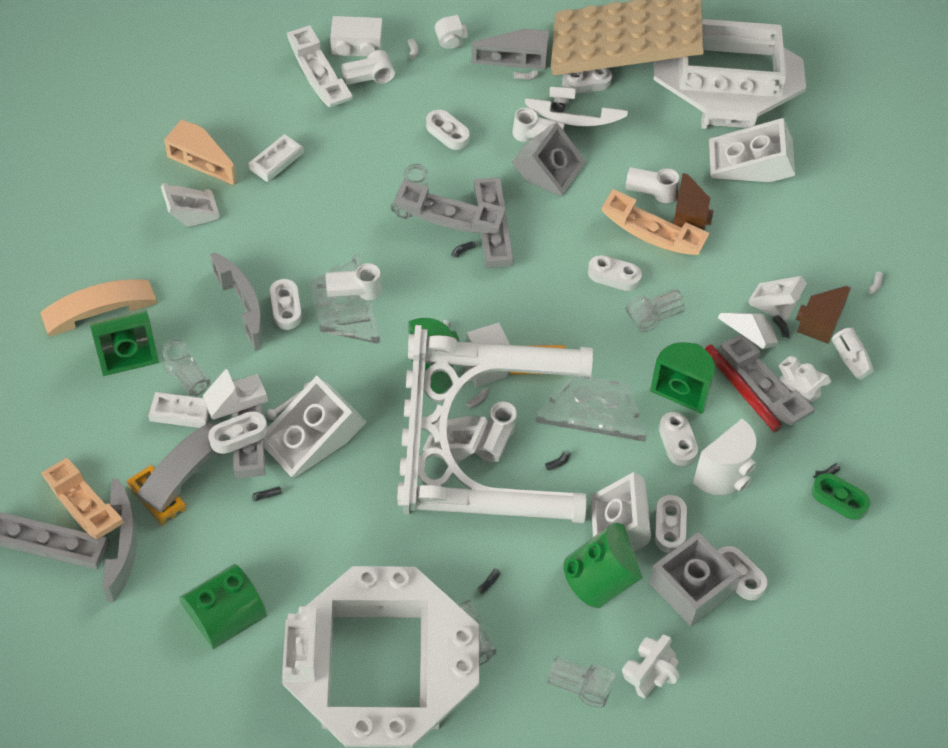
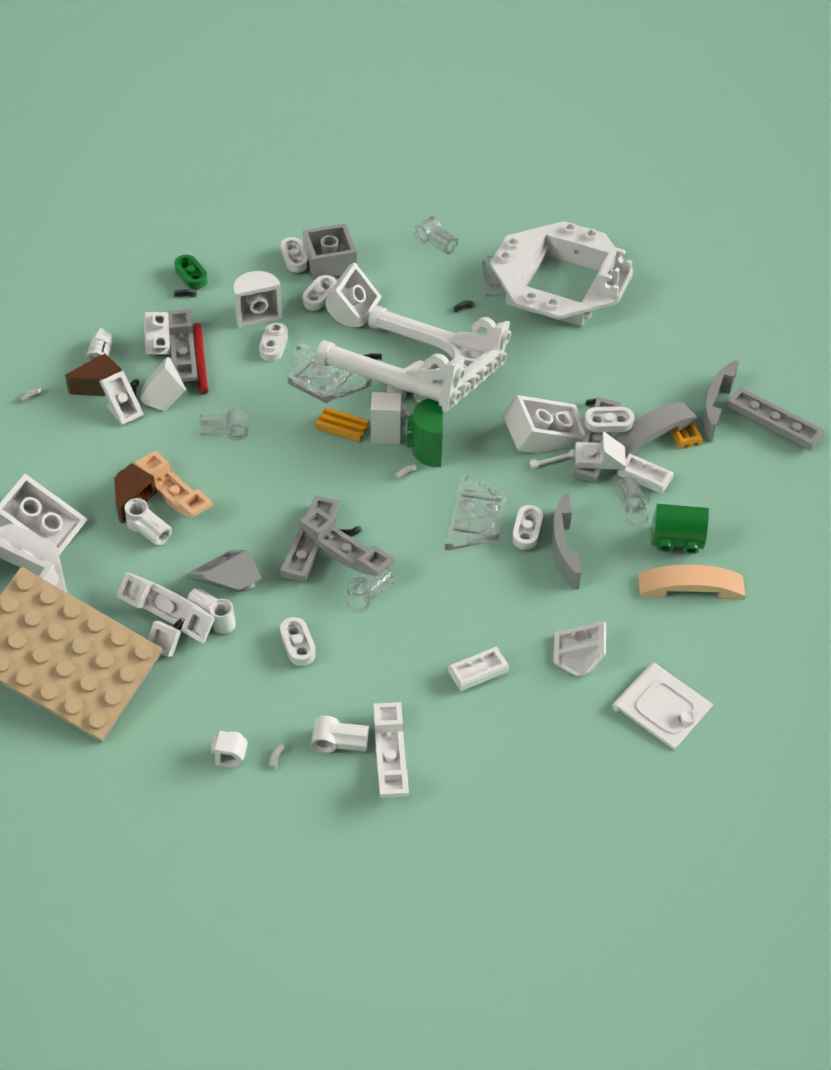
camera: 155 degrees left, 5 degrees down
(81, 500) = (737, 426): light nougat slope -> none
(102, 187) = (658, 702): none -> white container
(195, 148) = (556, 702): light nougat slope -> none
(224, 605) = (656, 343): green brick -> none
(355, 35) = (331, 779): white brick -> none
(363, 282) = (458, 502): white piece -> none
(514, 49) = (173, 704): light grey slope -> none
(525, 75) = (172, 681): white leg -> none
(602, 567) = (387, 271): green brick -> none
(614, 273) = (230, 466): white plate -> none
(656, 669) = (385, 224): white hips -> none
(684, 375) = (245, 358): green brick -> none

